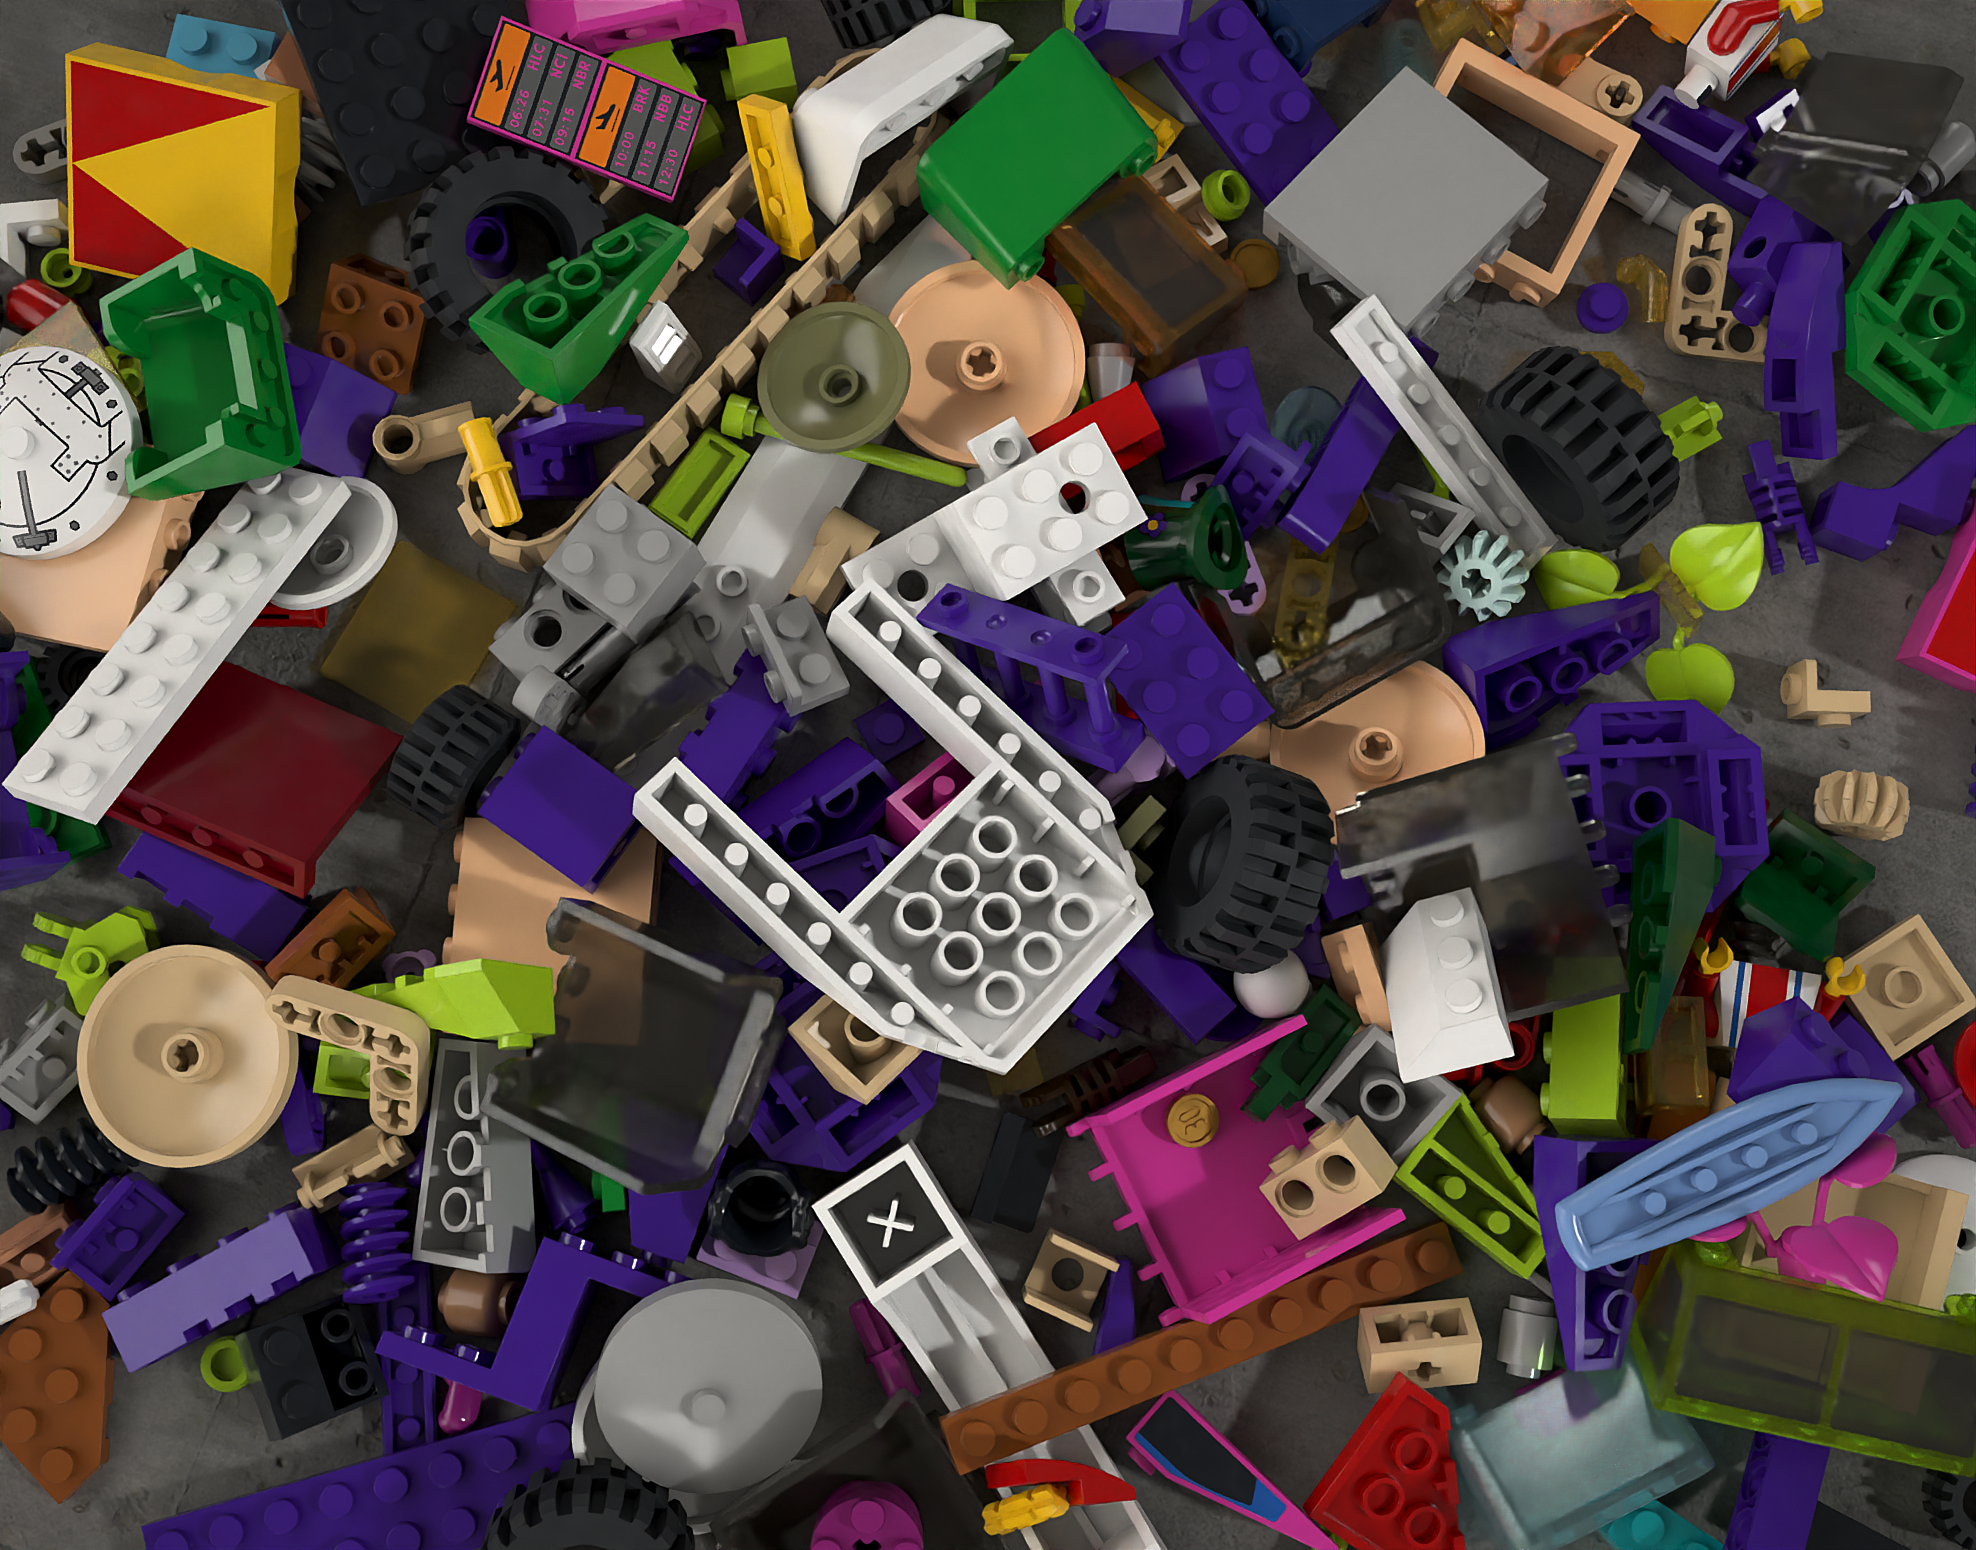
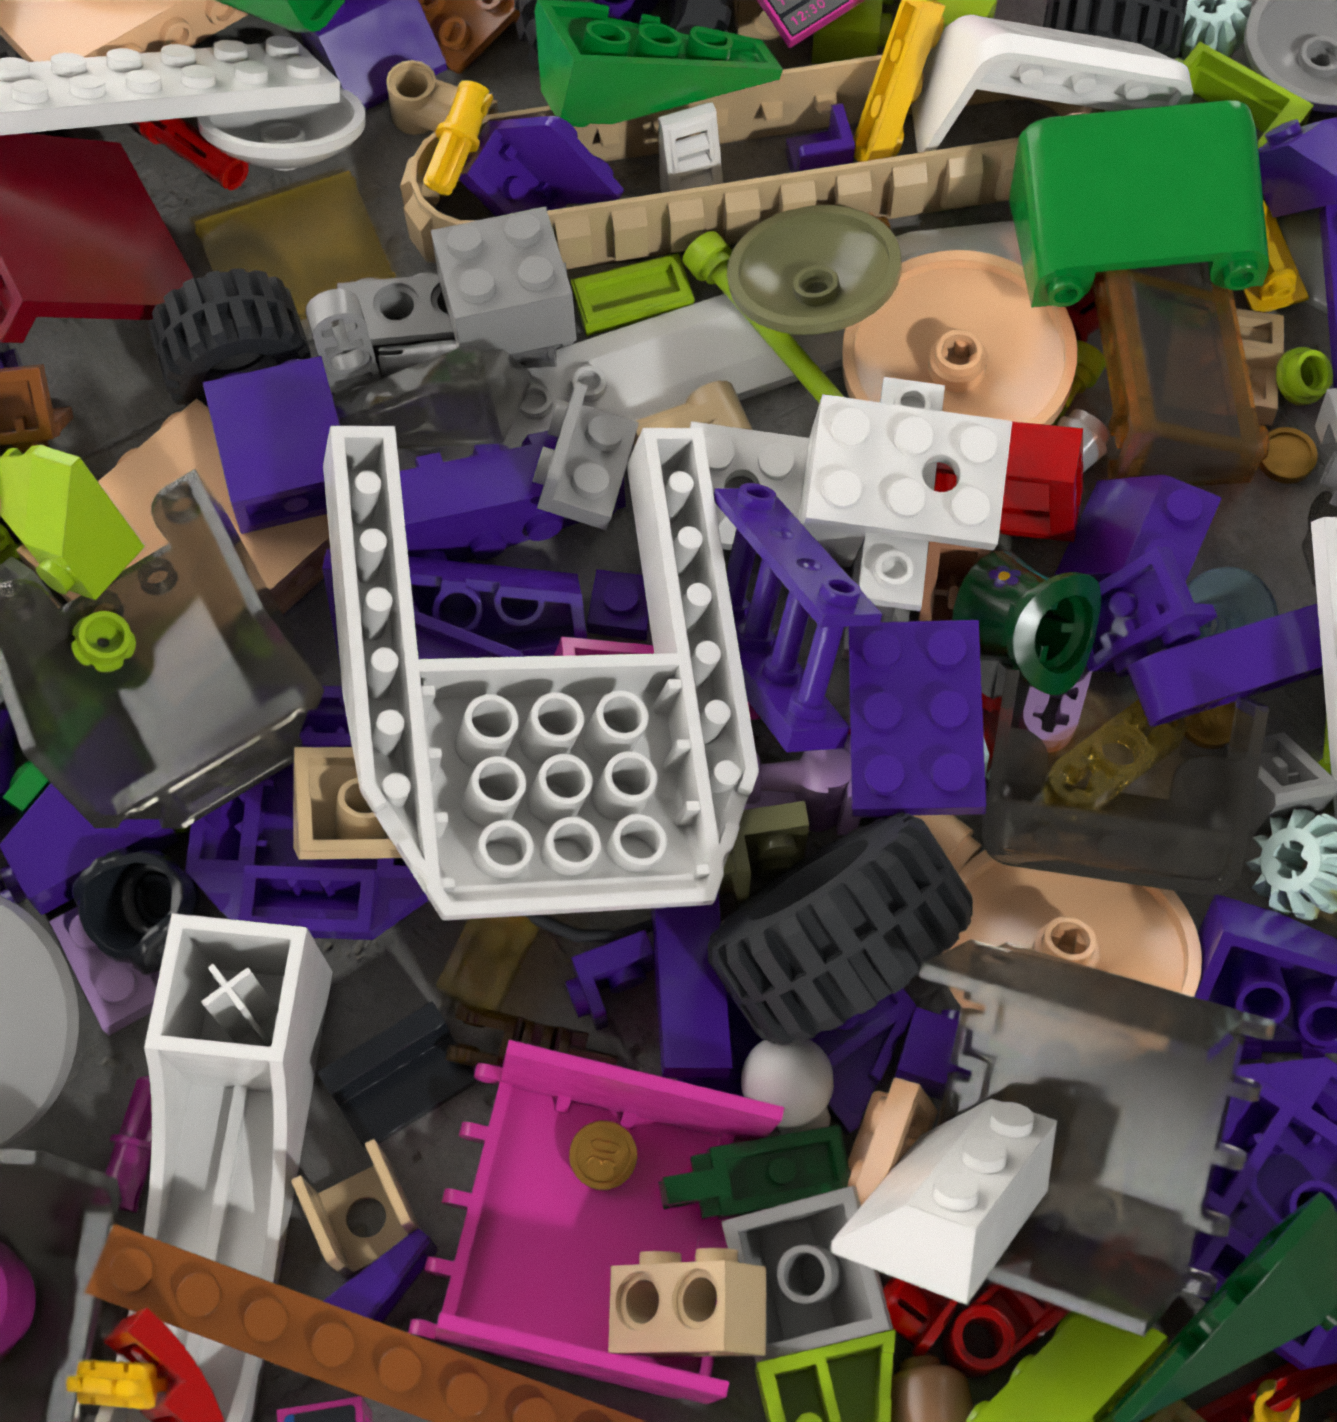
camera: 45 degrees right, 15 degrees down
(579, 1040) = (108, 626): none -> lime plate

